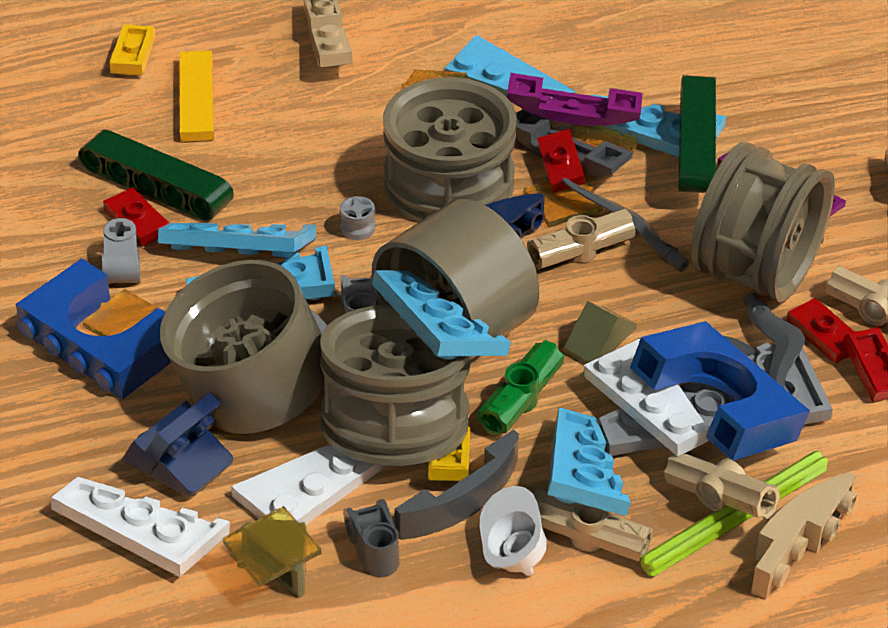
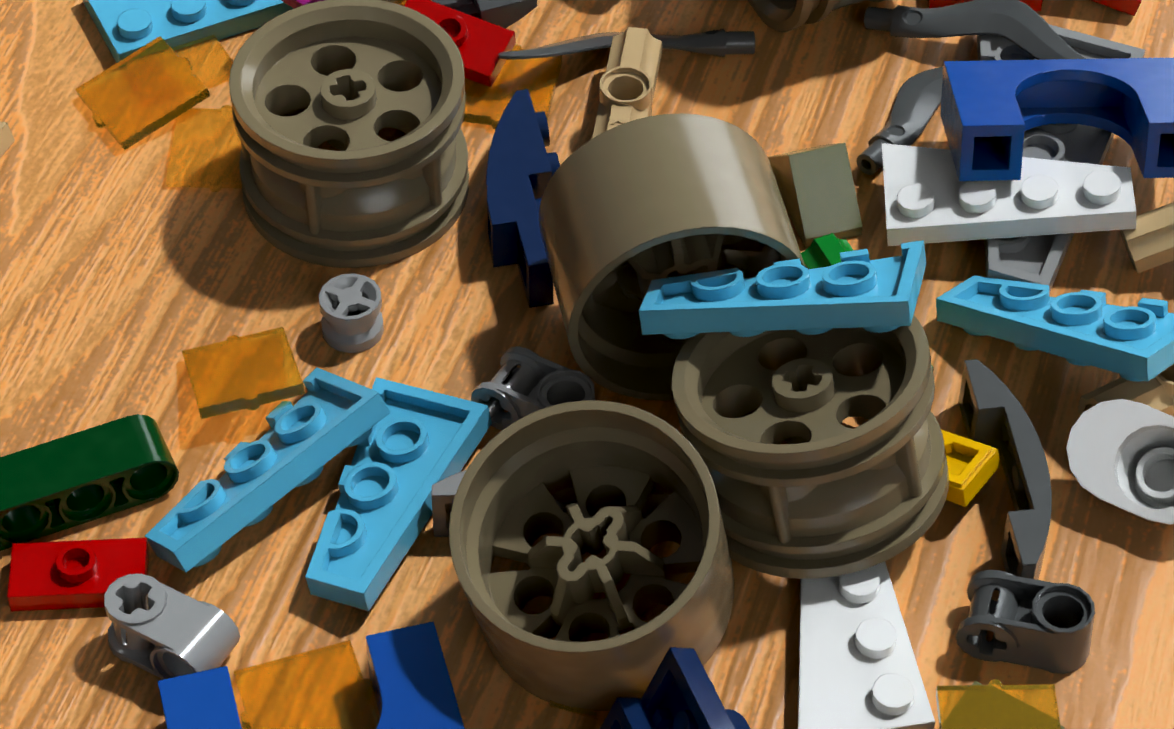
camera: 55 degrees left, 5 degrees up
(290, 203) = (243, 372): none -> clear yellow piece

